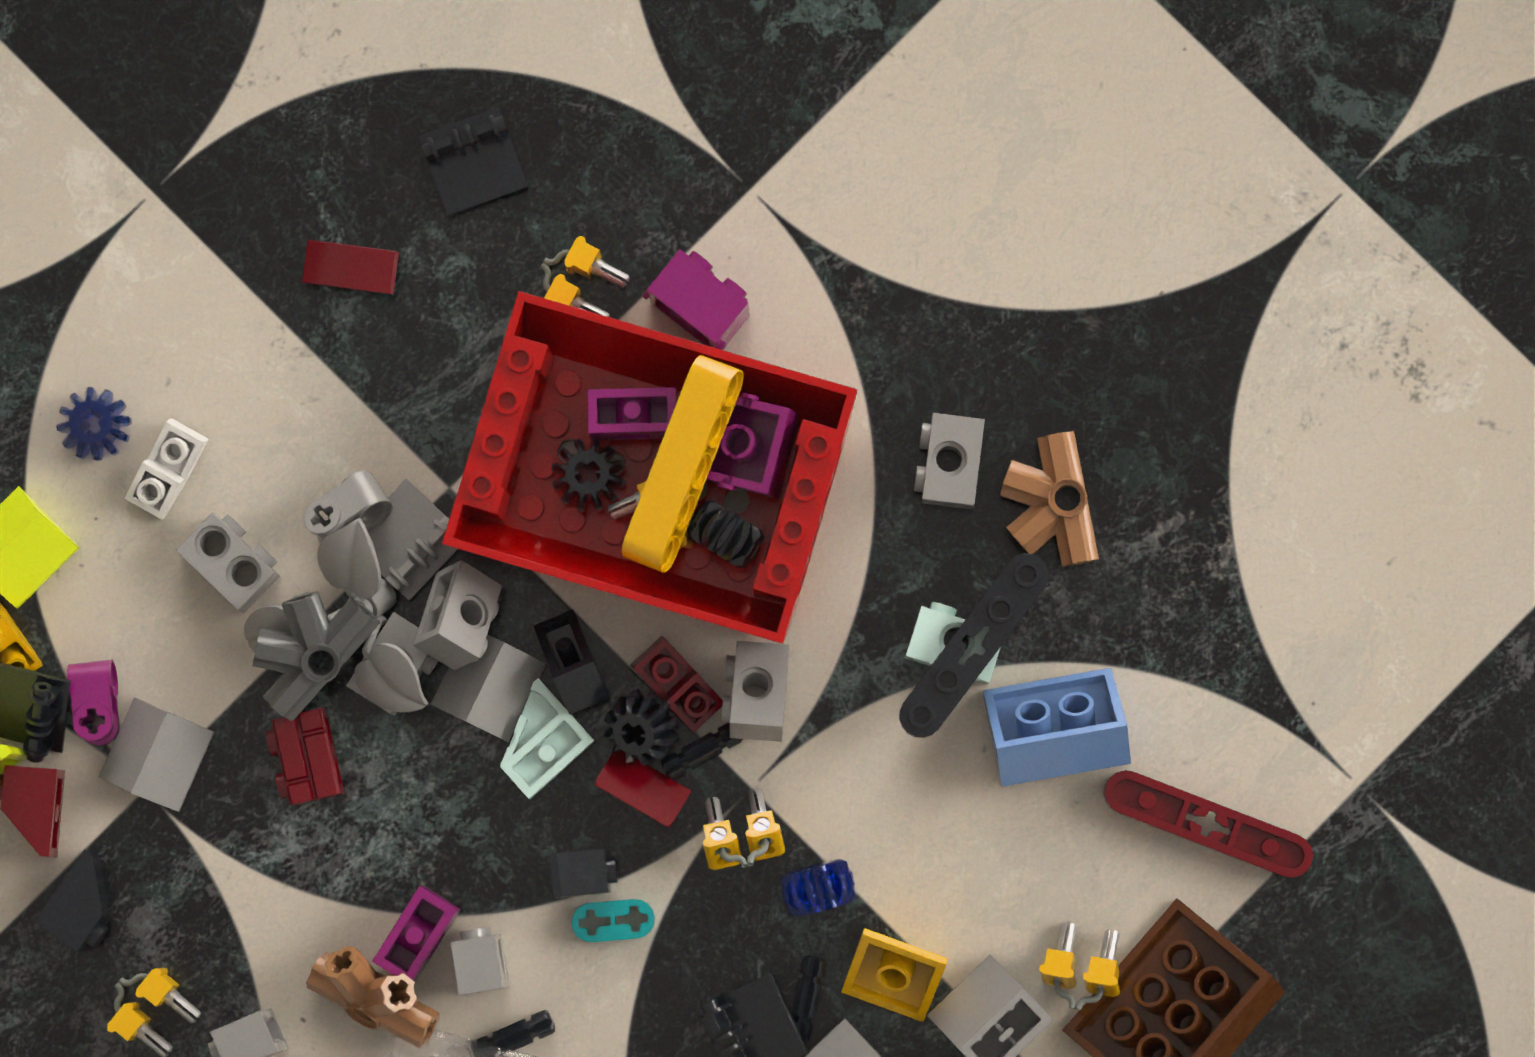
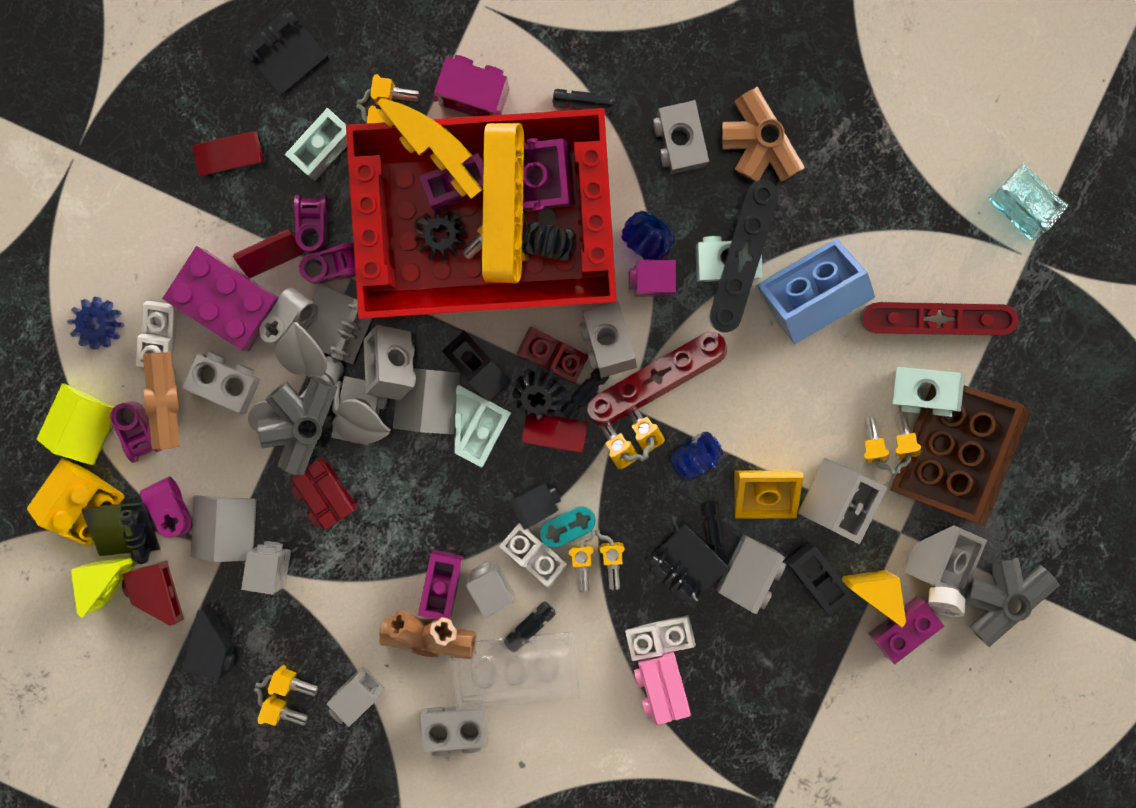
camera: 25 degrees left, 5 degrees up
(91, 587) = (134, 433): none -> magenta piece
(145, 556) = (161, 400): none -> medium nougat piece
(196, 826) = (266, 568): none -> light grey brick
(271, 452) = (221, 298): none -> magenta brick
(354, 415) = (268, 253): none -> dark red slope
(429, 388) = (311, 216): none -> magenta piece
(433, 459) = (332, 263): none -> magenta piece
(474, 300) = (319, 145): none -> light aqua brick
(554, 942) = (534, 555): none -> white slope
(614, 338) = (423, 133): none -> yellow slope
(617, 969) = (611, 557): none -> piece
(839, 366) = (582, 100): none -> black axle
(844, 631) = (653, 278): none -> magenta brick
(846, 758) = (684, 365): none -> dark red piece
(859, 574) = (648, 236): none -> clear blue gear
(1182, 920) = (912, 380): none -> light aqua brick
(1381, 712) = (1028, 202): none -> clear light blue bracket

